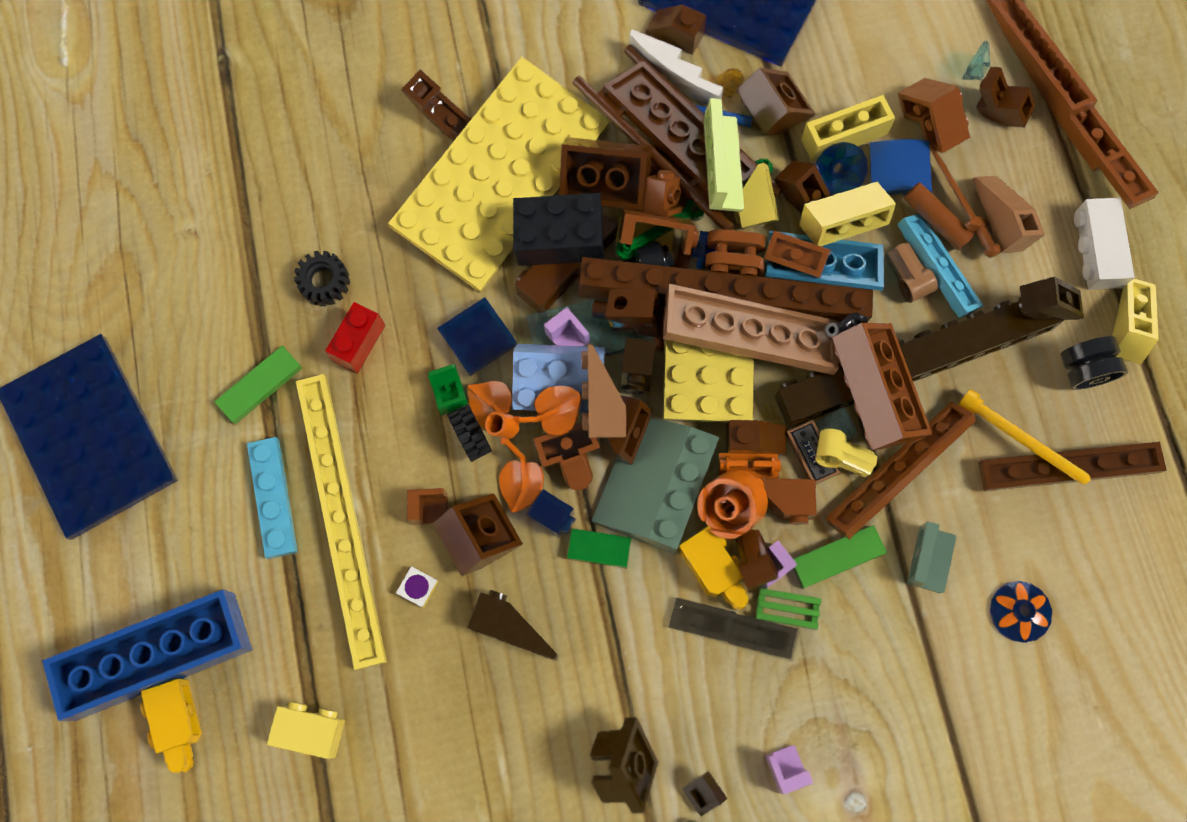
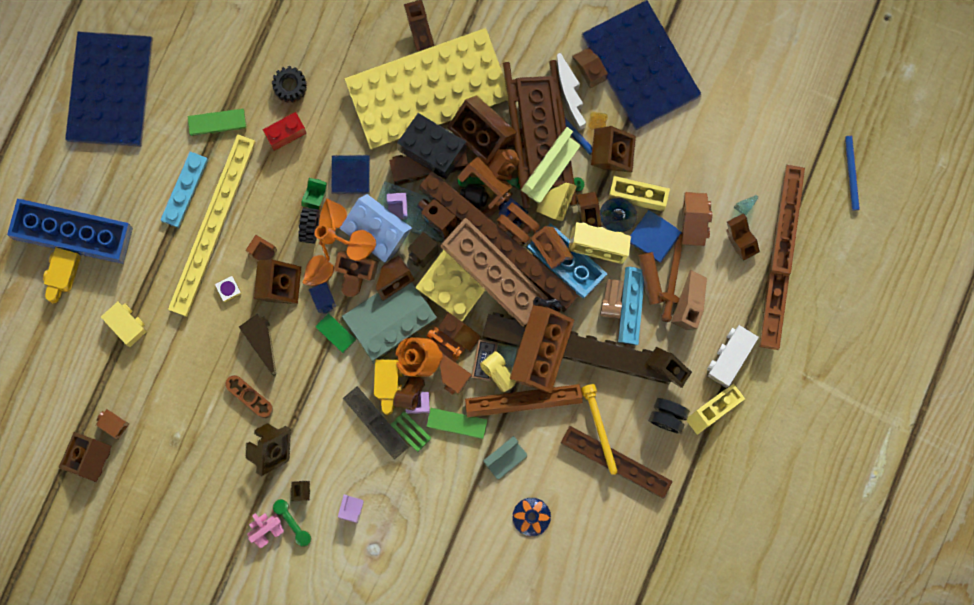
camera: 30 degrees right, 5 degrees up
(522, 701) = (235, 391): none -> dark orange beam
(605, 406) = (386, 258): medium nougat slope -> none

